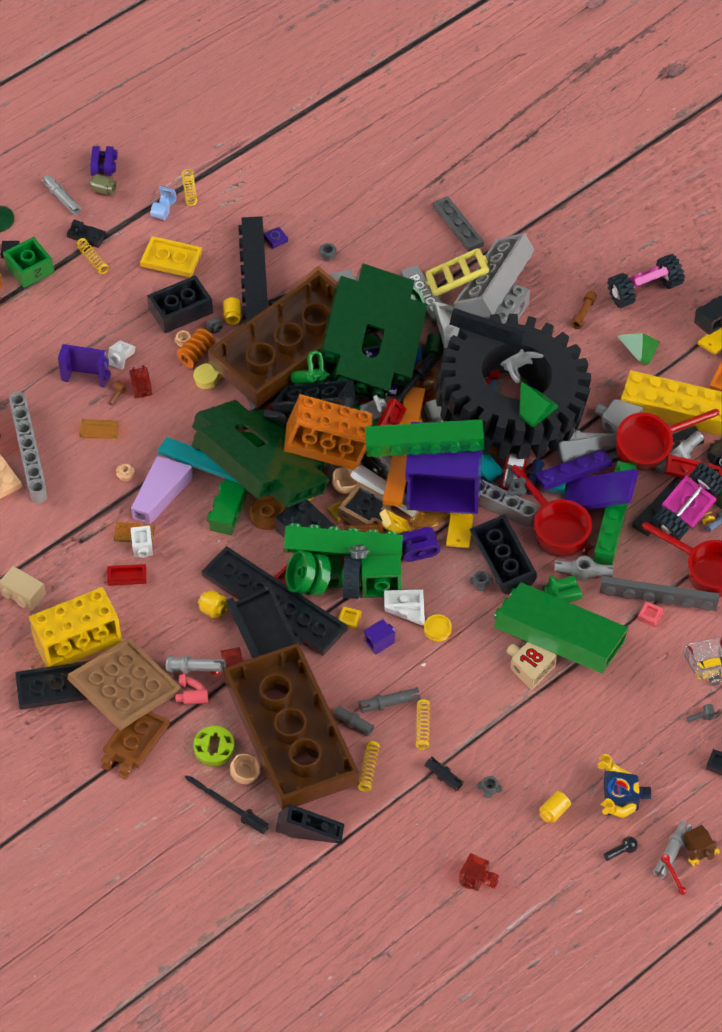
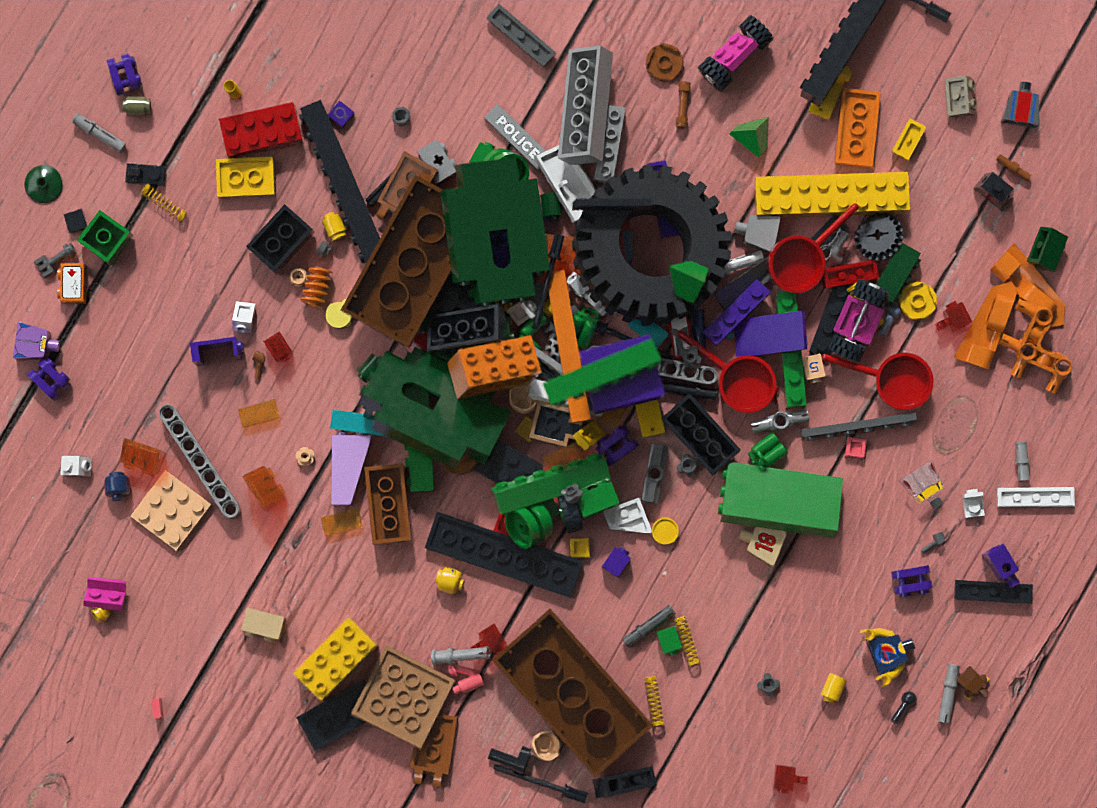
camera: 20 degrees left, 30 degrees up
(76, 480) = (264, 487): none -> clear orange slope
(126, 574) = (353, 571): red tile -> none
(141, 541) = (355, 534): white bracket -> none
(161, 209) = (209, 118): light blue leg -> none
(183, 525) = (388, 504): none -> dark orange brick
(201, 226) = (261, 130): none -> red brick
(212, 778) = (518, 763): none -> black piece
(224, 748) = (498, 730): lime piece -> none
(263, 621) = (508, 592): black panel -> none
(279, 417) = (441, 357): black arm -> none
(310, 375) = (451, 303): green piece -> none
(353, 720) = (624, 659): dark grey pin -> none
(392, 413) = (545, 323): red plate -> none
(404, 716) = (669, 641): none -> green brick
(444, 773) = (724, 686): black pin -> none
(445, 268) = (527, 99): light yellow bar -> none
(449, 569) = (656, 461): none -> dark grey piece
(516, 525) = (696, 391): none -> black pin
(518, 360) = (646, 227): light grey piece -> none
(579, 277) = (664, 62): none -> dark orange tile
(631, 535) = (813, 369): none -> light nougat brick
(665, 859) = (947, 709): red hinge -> none
(668, 737) = (922, 586): none -> dark purple brick

